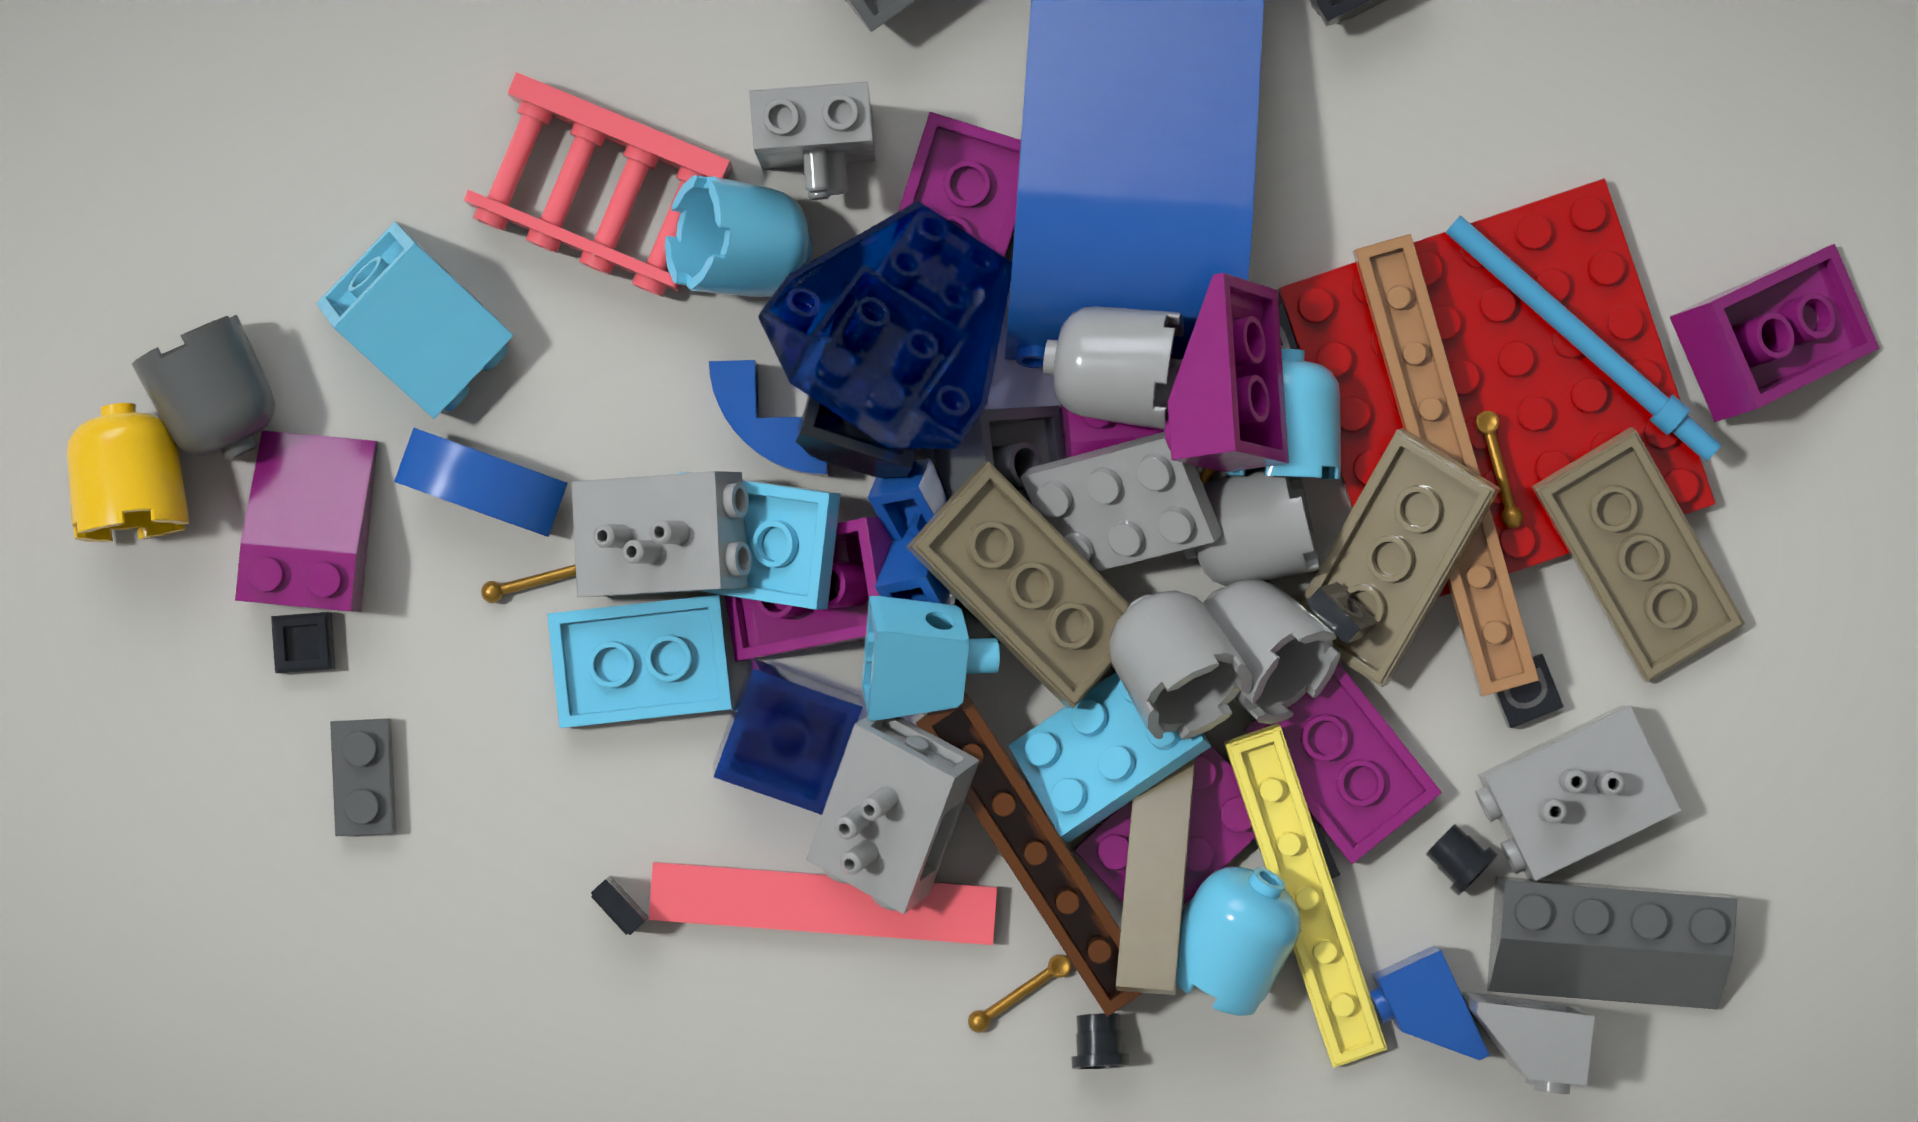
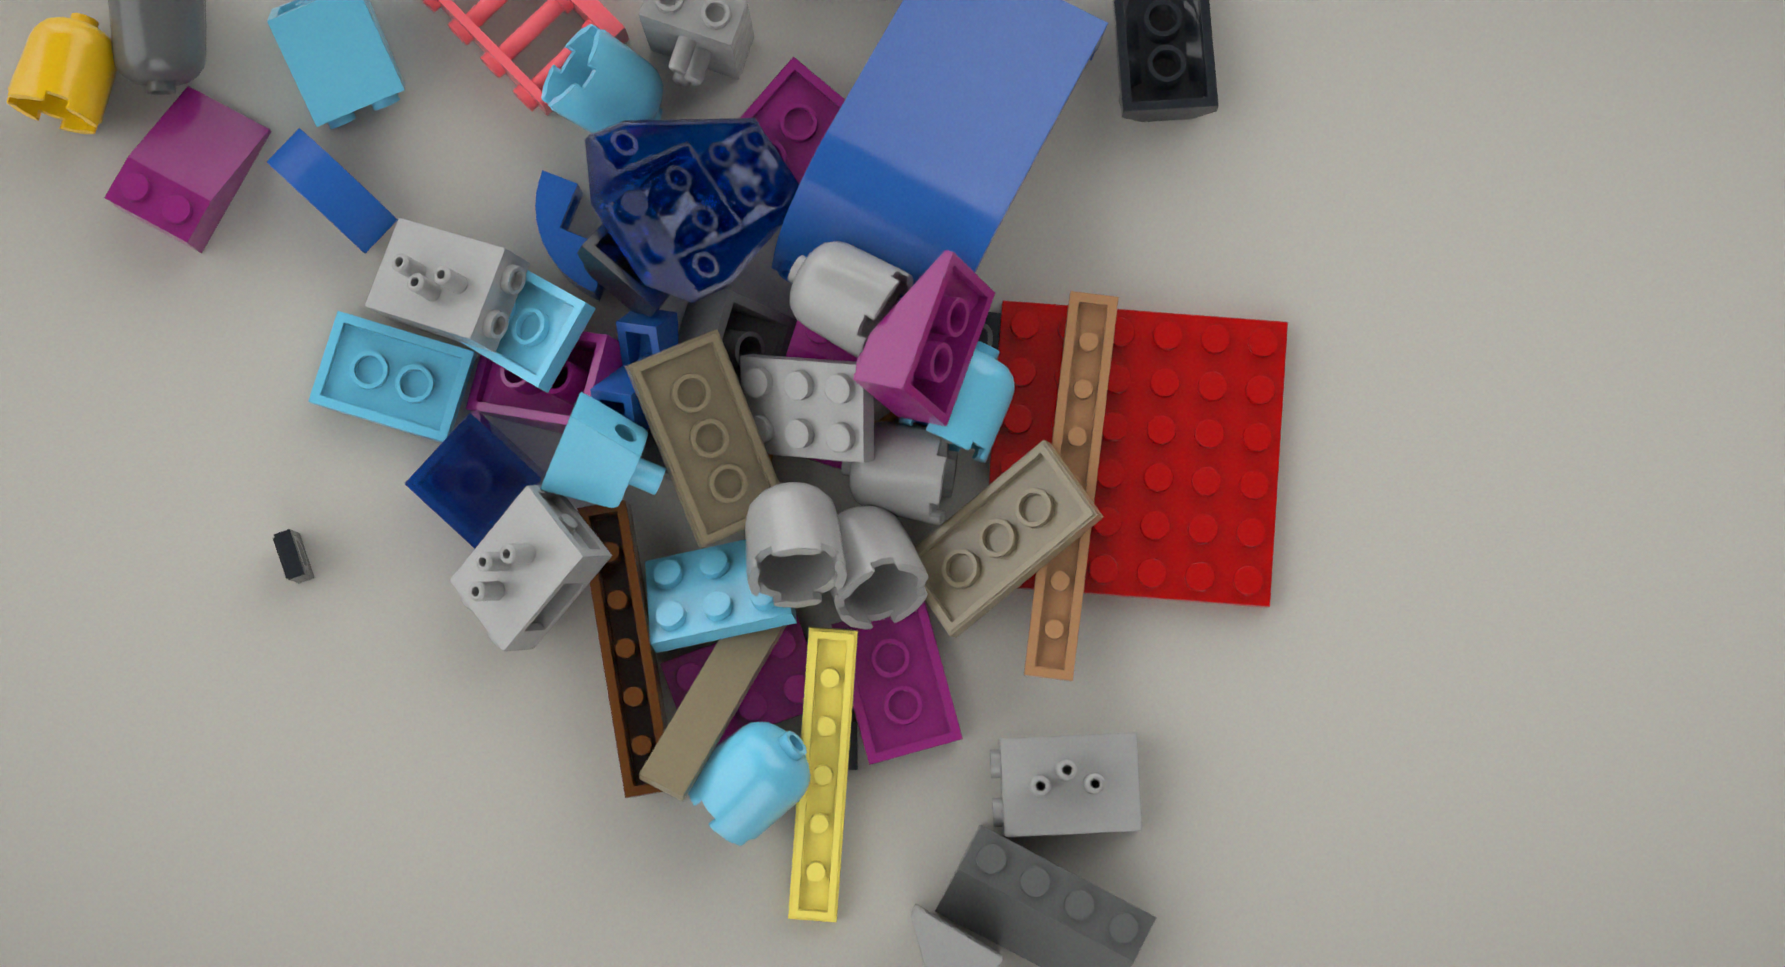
camera: 25 degrees right, 5 degrees down
(303, 642) = (146, 257): black tile -> none
(363, 777) = (145, 377): dark grey plate -> none
(494, 591) = (306, 279): pearl gold hinge -> none
(815, 904) = (445, 621): coral tile -> none
(1057, 966) = (531, 765): pearl gold hinge -> none
(1099, 1043) = (614, 820): black piece -> none
(1341, 612) = (941, 562): black tile -> none
(1427, 1003) = (881, 899): blue slope -> none
(1460, 858) = (956, 797): black piece -> none
(1486, 424) = (1117, 469): pearl gold hinge -> none
(1532, 699) = (1063, 696): black tile -> none
(1638, 554) = (1193, 619): dark tan tile -> none
(1668, 413) = (1260, 519): dark azure bar -> none
(1774, 333) = (1369, 494): magenta slope -> none

